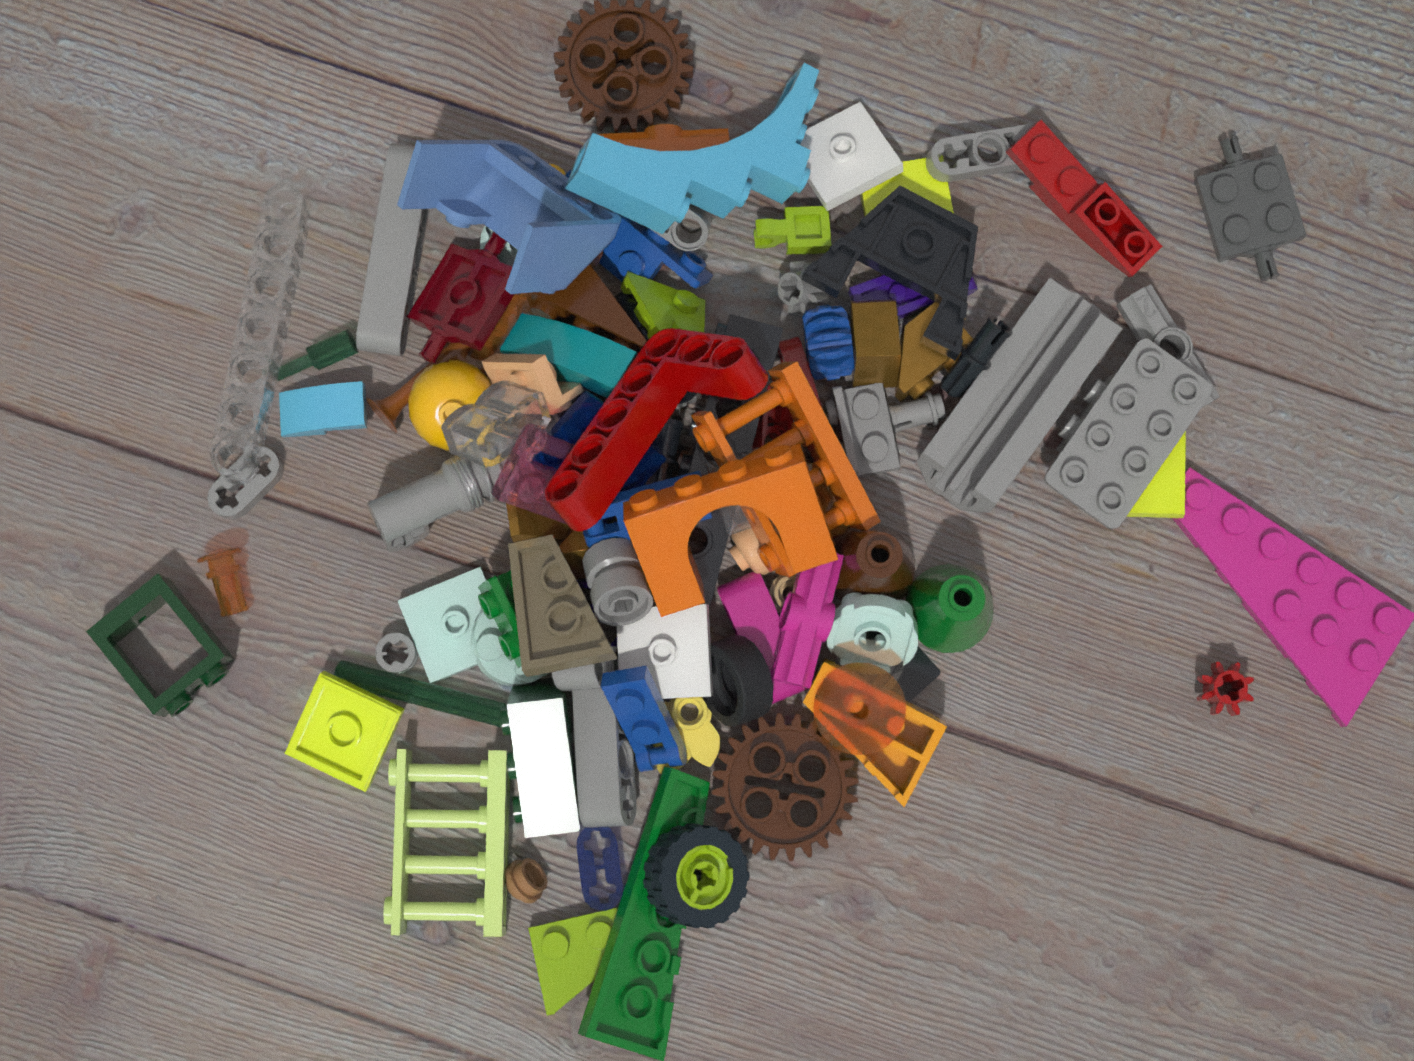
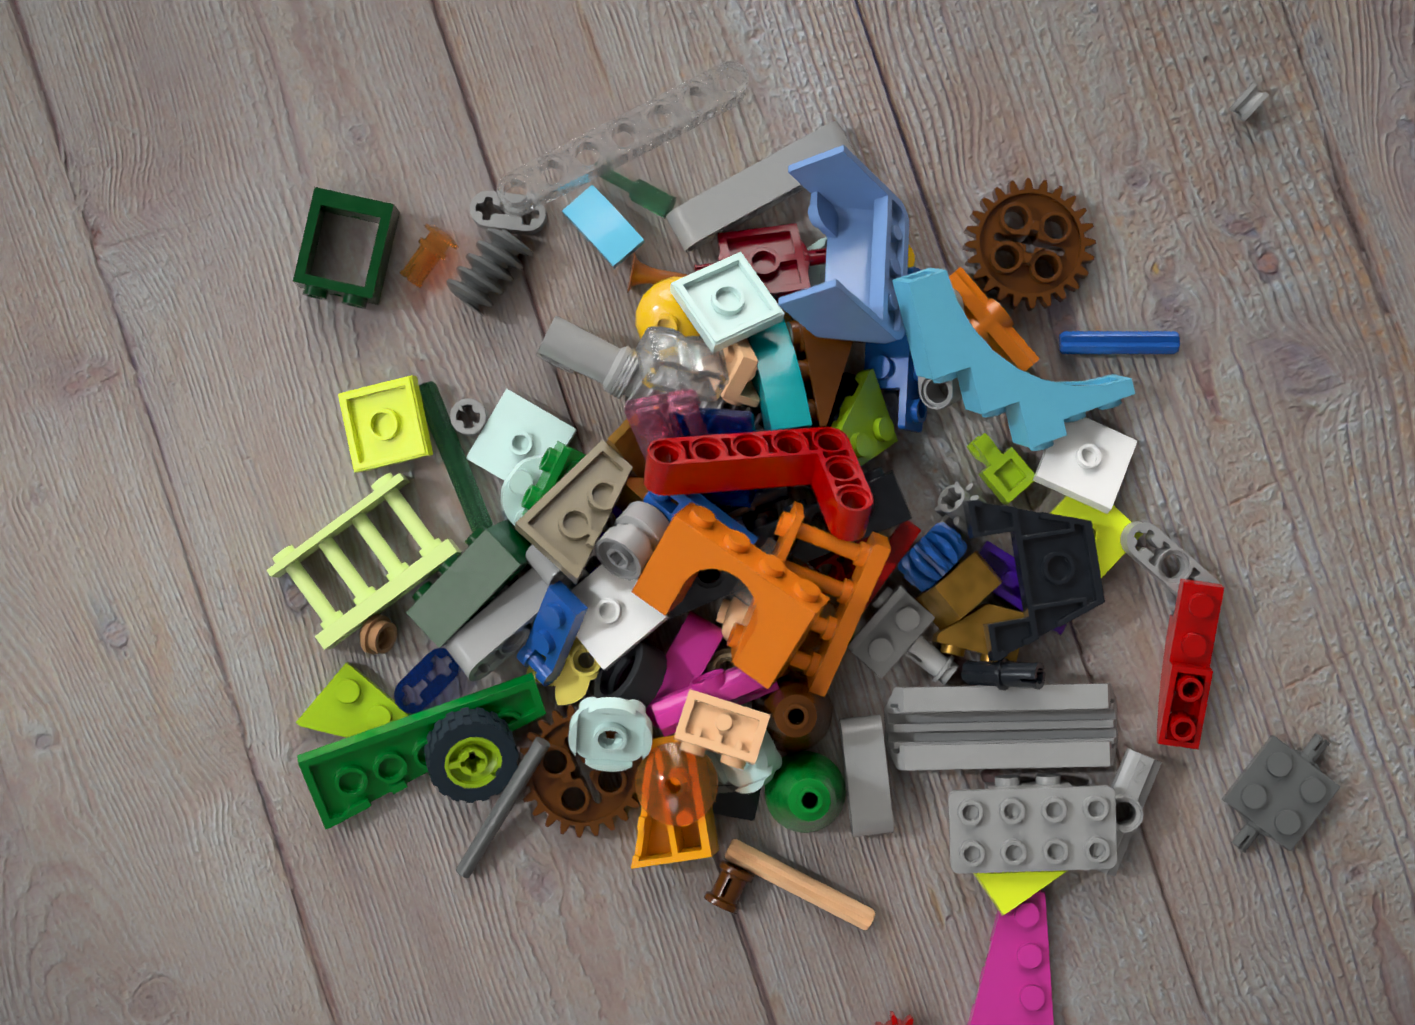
camera: 55 degrees right, 5 degrees up
(279, 536) = (488, 269): none -> dark grey piece
(473, 346) = (726, 302): none -> light aqua plate
(755, 717) = (610, 714): none -> light aqua plate
(764, 883) = (503, 807): none -> dark grey bar
(765, 55) = (1119, 342): none -> blue axle
(842, 629) = (721, 728): none -> light nougat bracket
(975, 543) = (866, 775): none -> light grey beam
(985, 722) = (718, 894): none -> reddish brown bush
(1027, 673) = (800, 884): none -> light nougat axle

